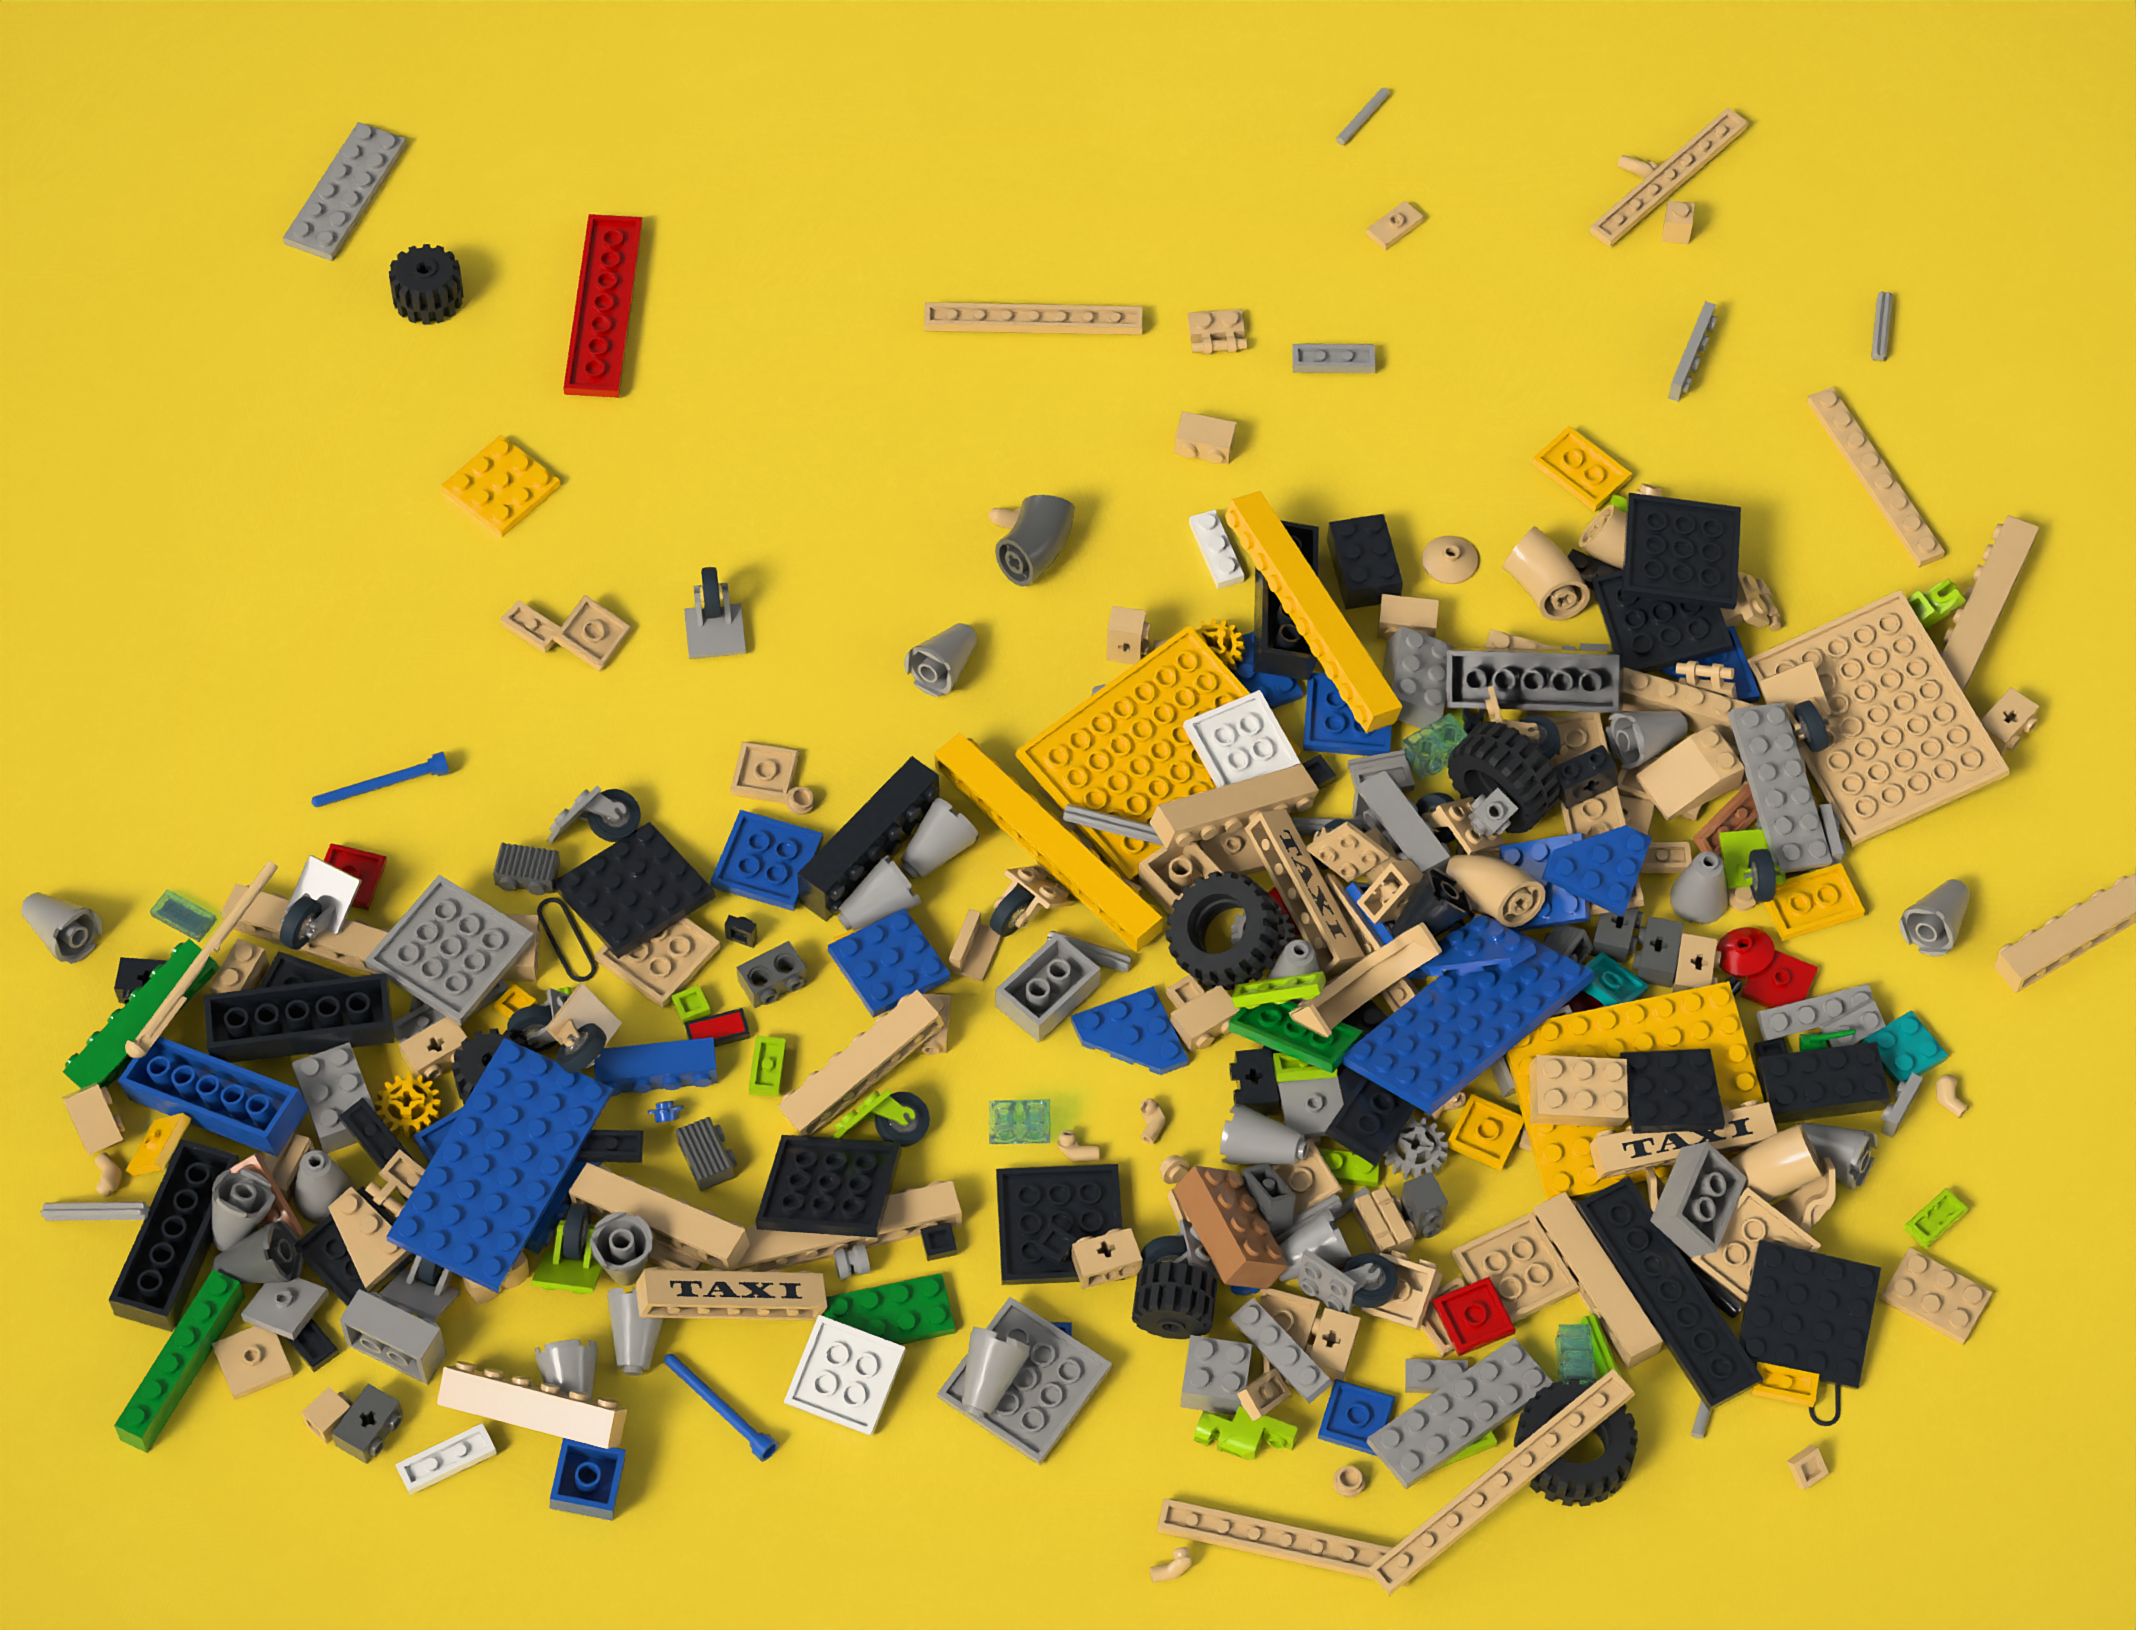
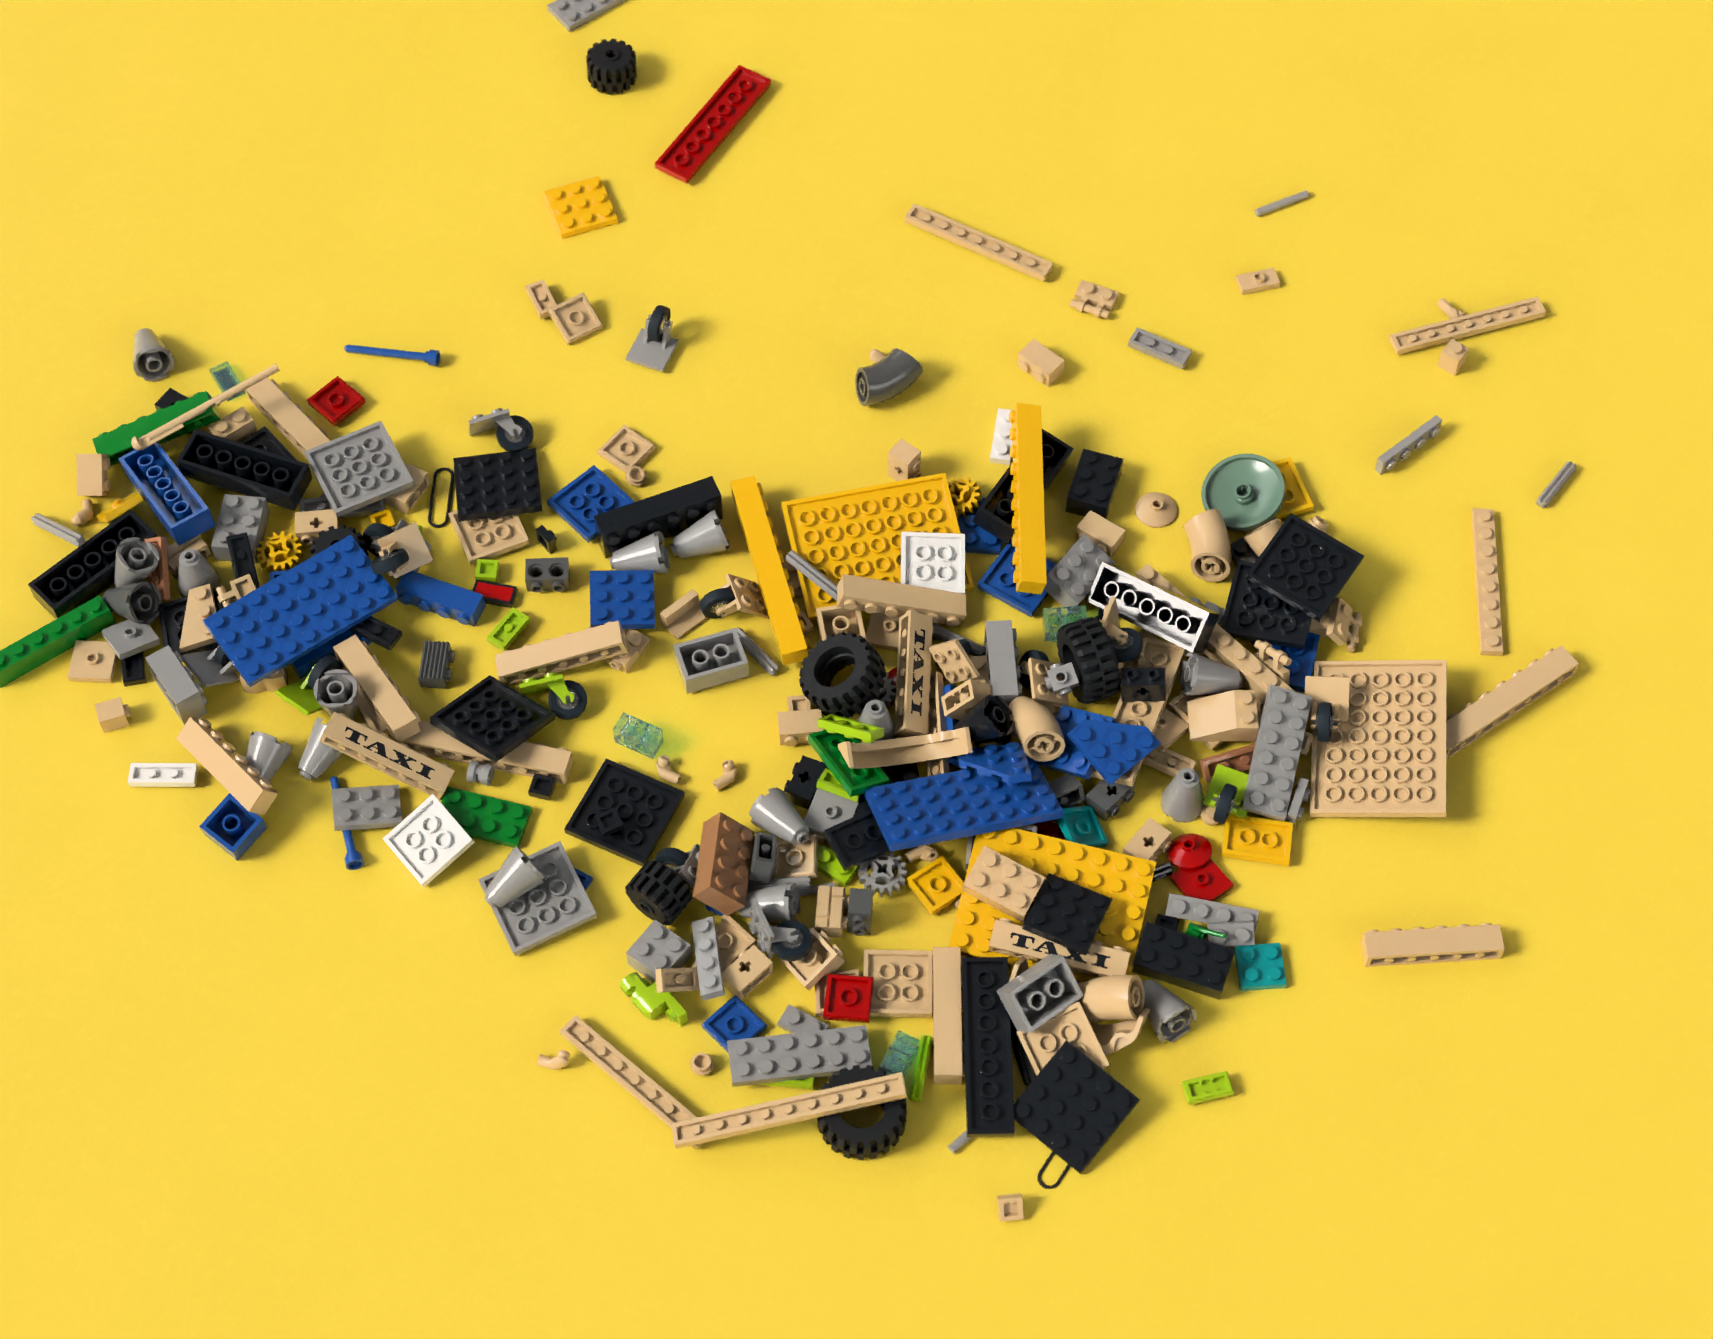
camera: 30 degrees right, 0 degrees up
(317, 903) = (298, 407): plate -> none
(369, 1408) = (131, 731): dark grey brick -> none
(526, 868) = (442, 443): dark grey brick -> none
(665, 1111) = (429, 628): blue plate -> none
(737, 1373) = (366, 807): none -> light grey plate
(941, 659) = (779, 426): light grey cone -> none
(1121, 1261) = (624, 848): tan brick -> none
(1133, 1032) = (750, 714): blue plate -> none
(1174, 1169) = (718, 807): tan plate -> none
(1320, 771) = (975, 606): black plate -> none
(1392, 762) = (1026, 624): light grey plate -> none
(1544, 487) = (1245, 491): none -> sand green dish
(1660, 966) = (1127, 822): dark grey brick -> none
(1787, 1384) = (1031, 1146): yellow plate -> none
(1894, 1114) = (1237, 998): light grey plate -> none
(1931, 607) = (1464, 683): lime plate -> none
(1936, 918) = (1336, 889): light grey cone -> none
(1936, 1296) = (1175, 1139): tan plate -> none
(1947, 1095) = (1268, 1011): tan arm -> none
(2009, 720) = (1472, 783): tan brick -> none

